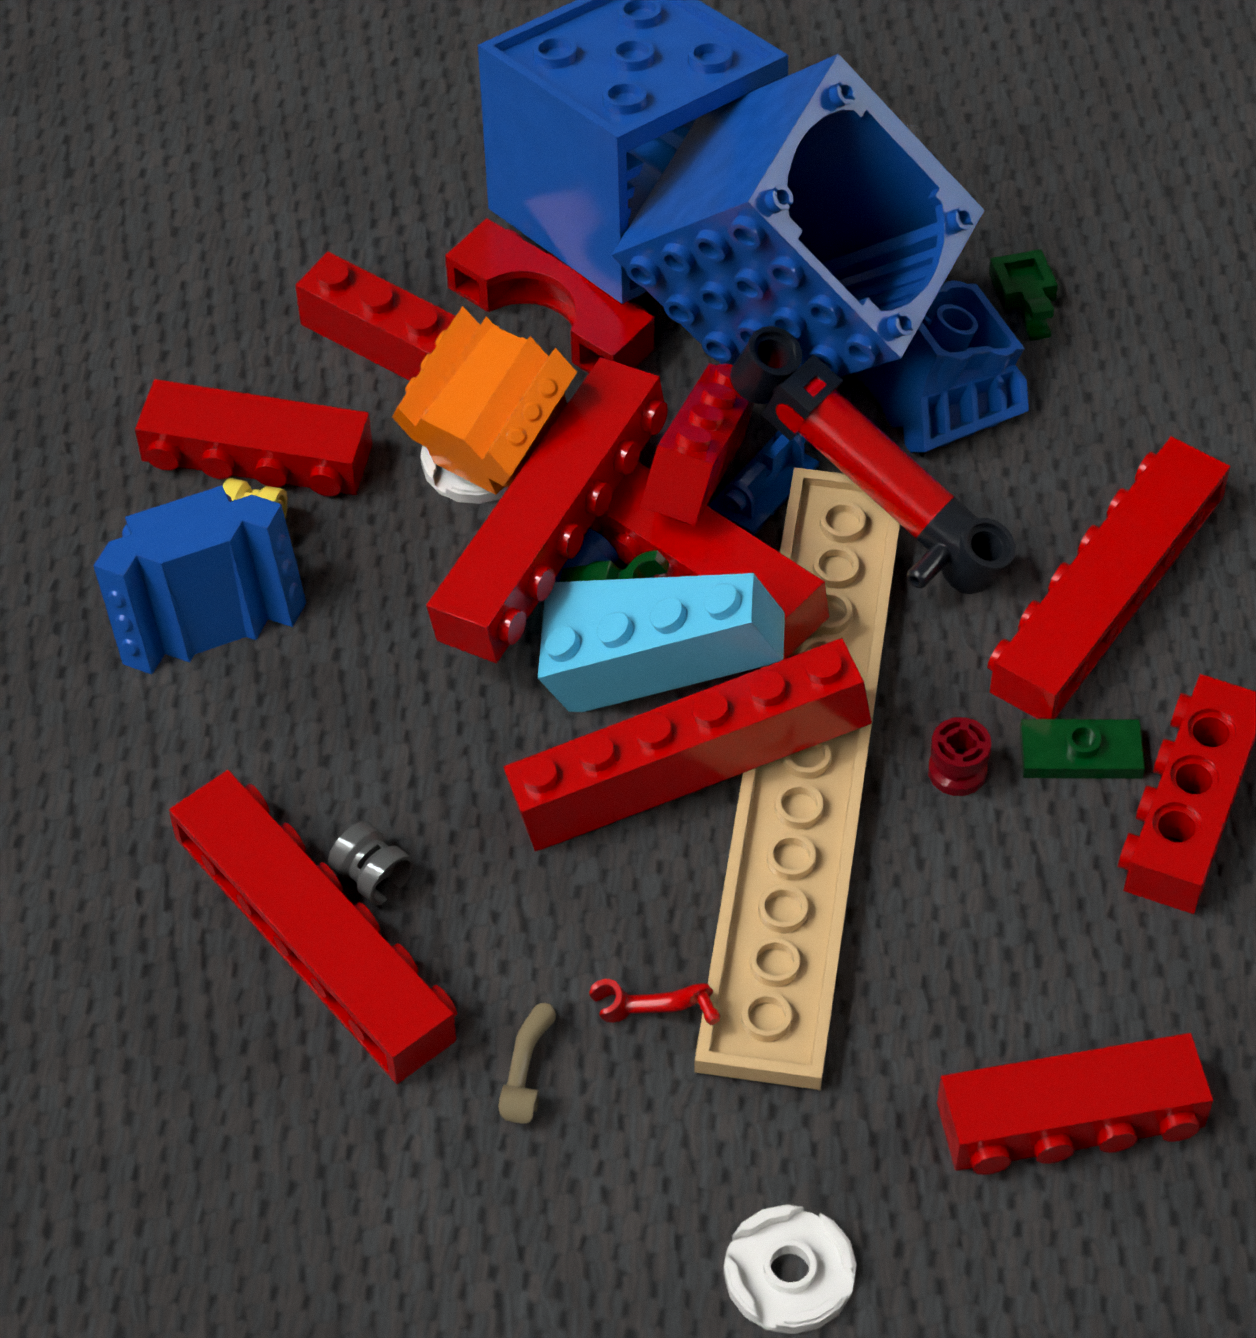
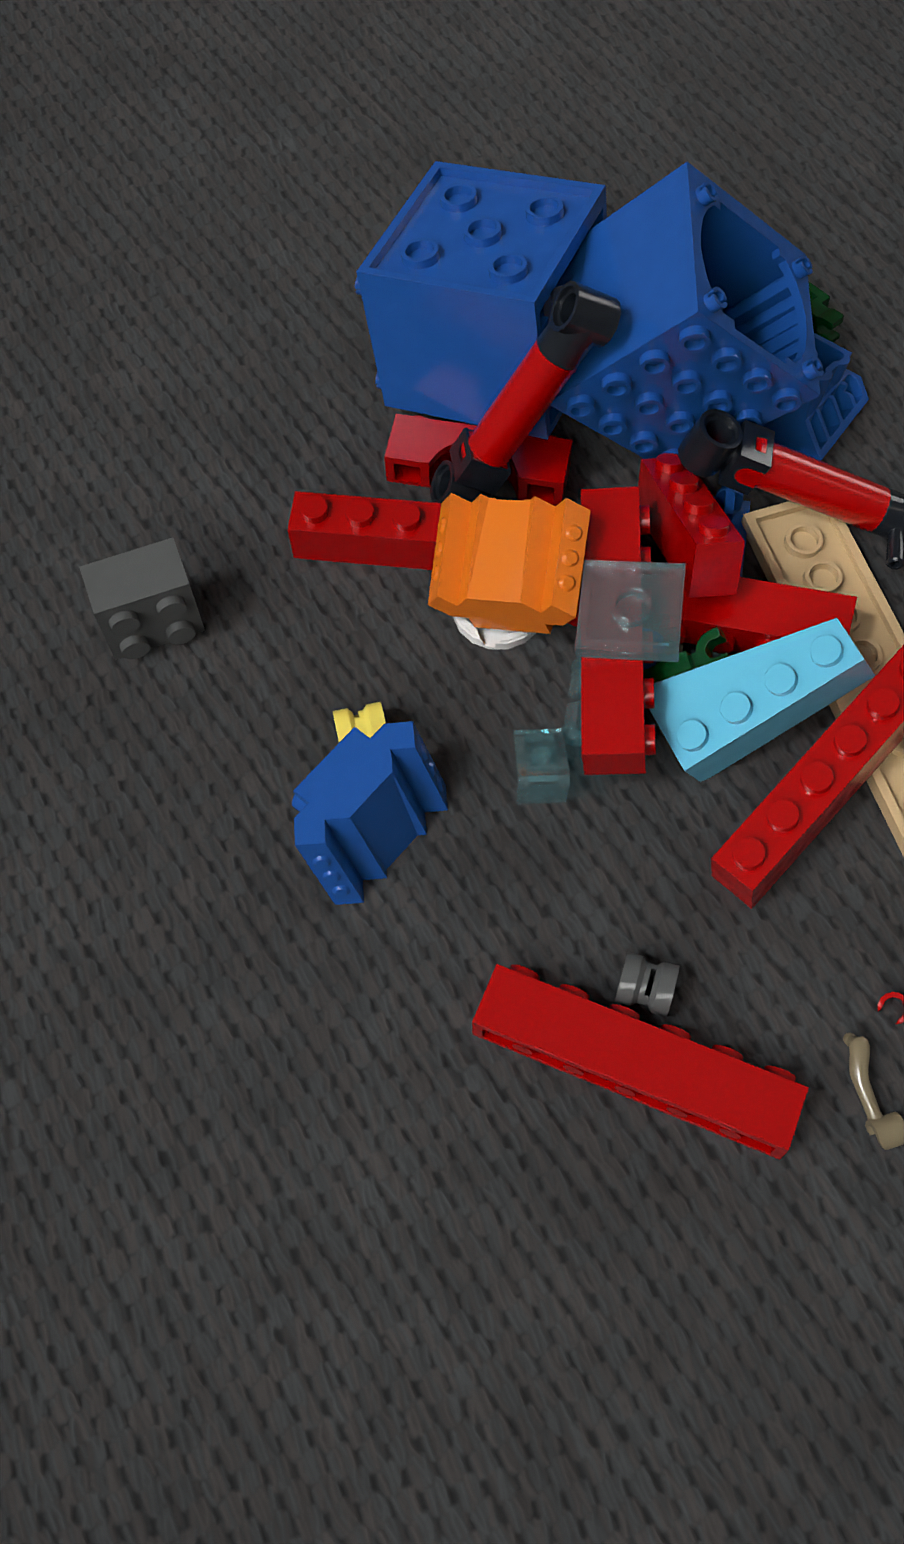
camera: 25 degrees left, 10 degrees up
(111, 295) = (142, 599): none -> dark grey brick
(254, 437) = (325, 668): red brick -> none
(396, 622) = (541, 766): none -> clear light blue slope
(542, 282) = (482, 455): none -> piece
(563, 488) = (630, 610): none -> clear light blue tile

